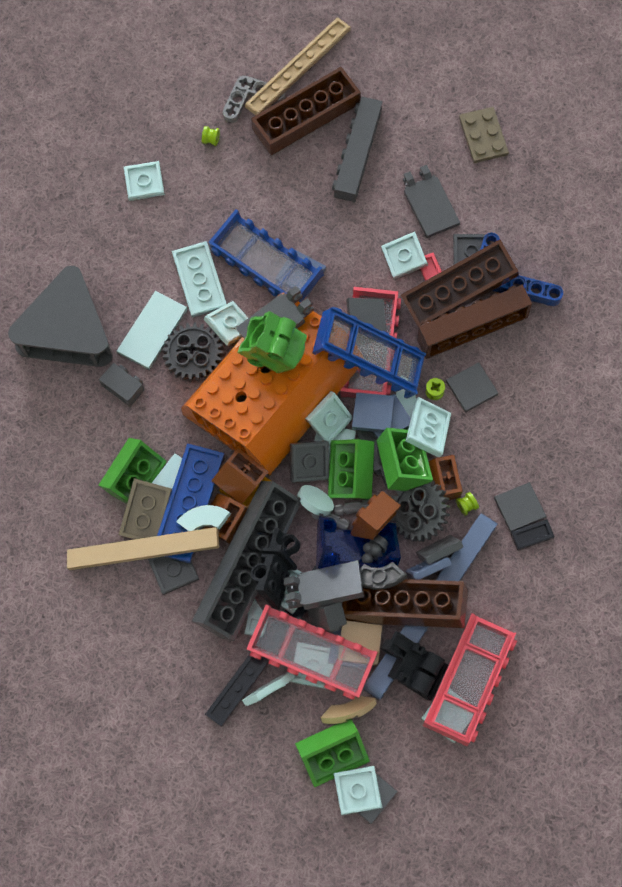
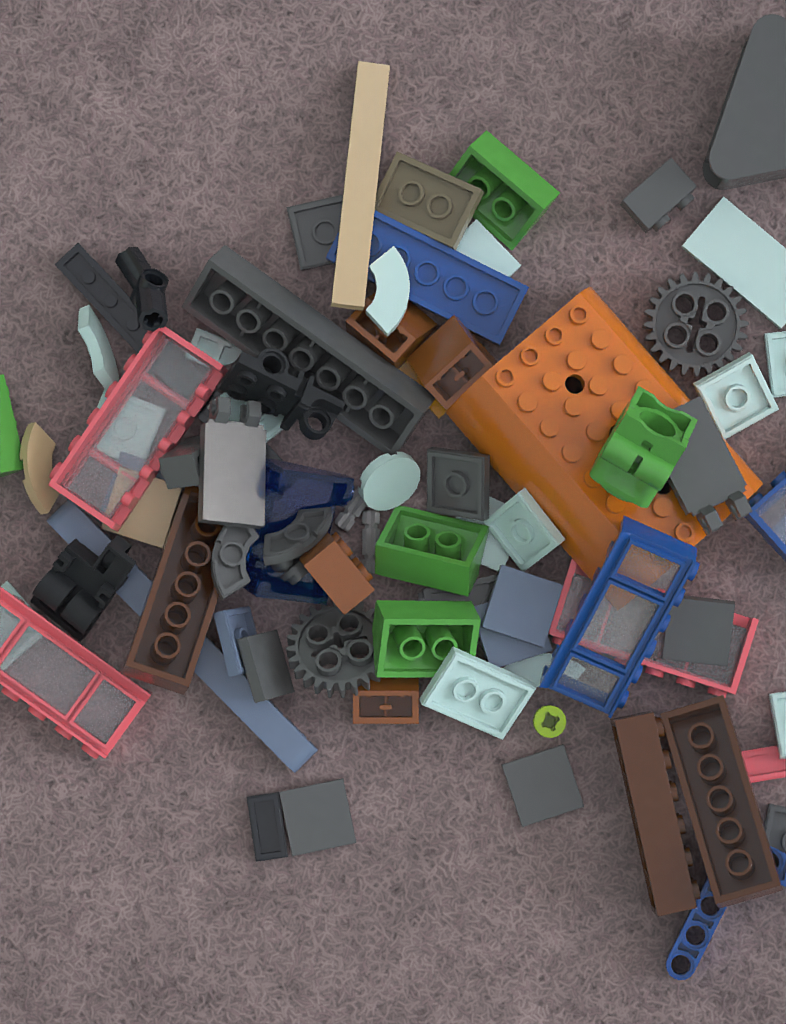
camera: 100 degrees right, 15 degrees up
(226, 663) = (147, 287): none -> black piece
(360, 543) = (298, 536): none -> dark grey tile
(467, 503) = (338, 730): lime wheel -> none

